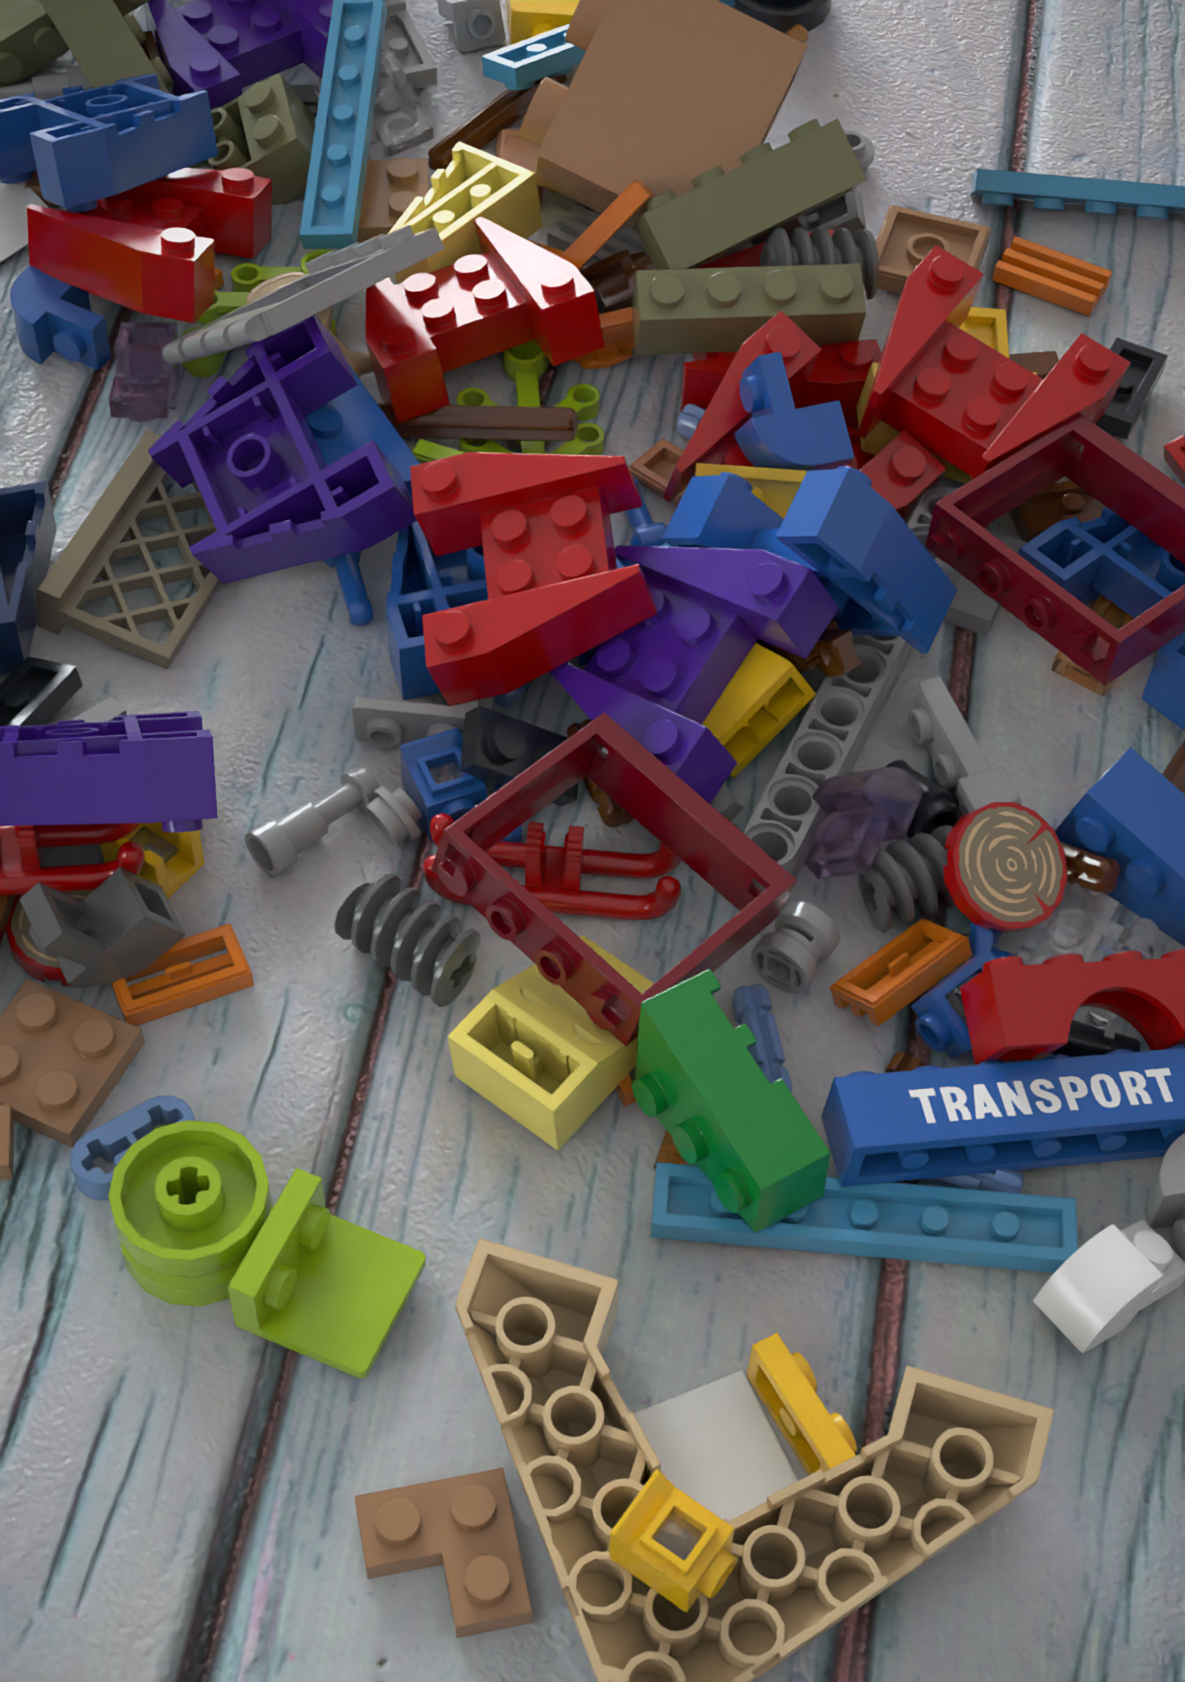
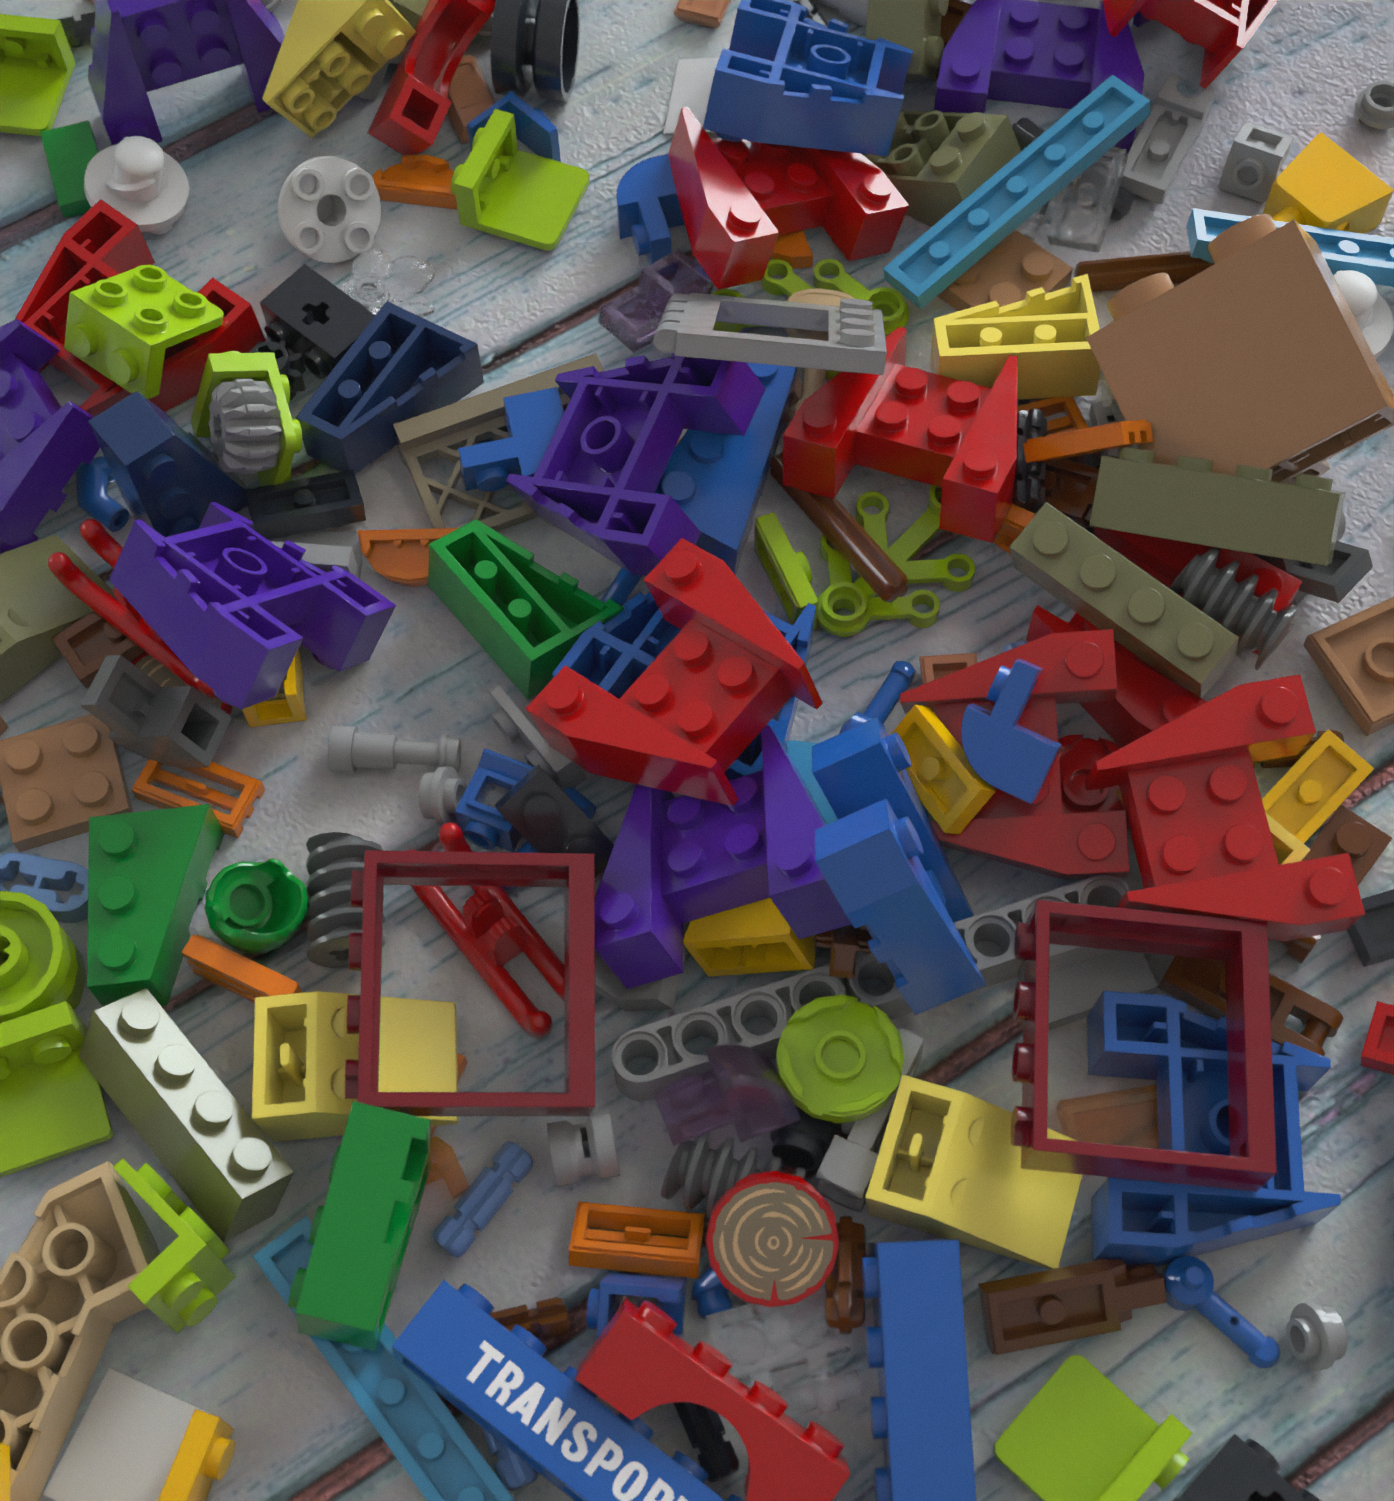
camera: 50 degrees right, 10 degrees up
(156, 678) = (400, 553): none -> orange tile
(164, 518) = (530, 426): none -> blue brick
(244, 1069) = (143, 895): none -> green wedge
(292, 646) = (512, 603): none -> green wedge
(351, 995) = (256, 905): none -> green hair
(393, 1058) = (235, 971): none -> orange tile
(476, 1175) = (185, 1114): none -> olive brick
(602, 1238) = (190, 1272): none -> lime bracket
(907, 726) = (840, 1059): none -> lime tile
(1061, 731) = (958, 1177): none -> light yellow slope

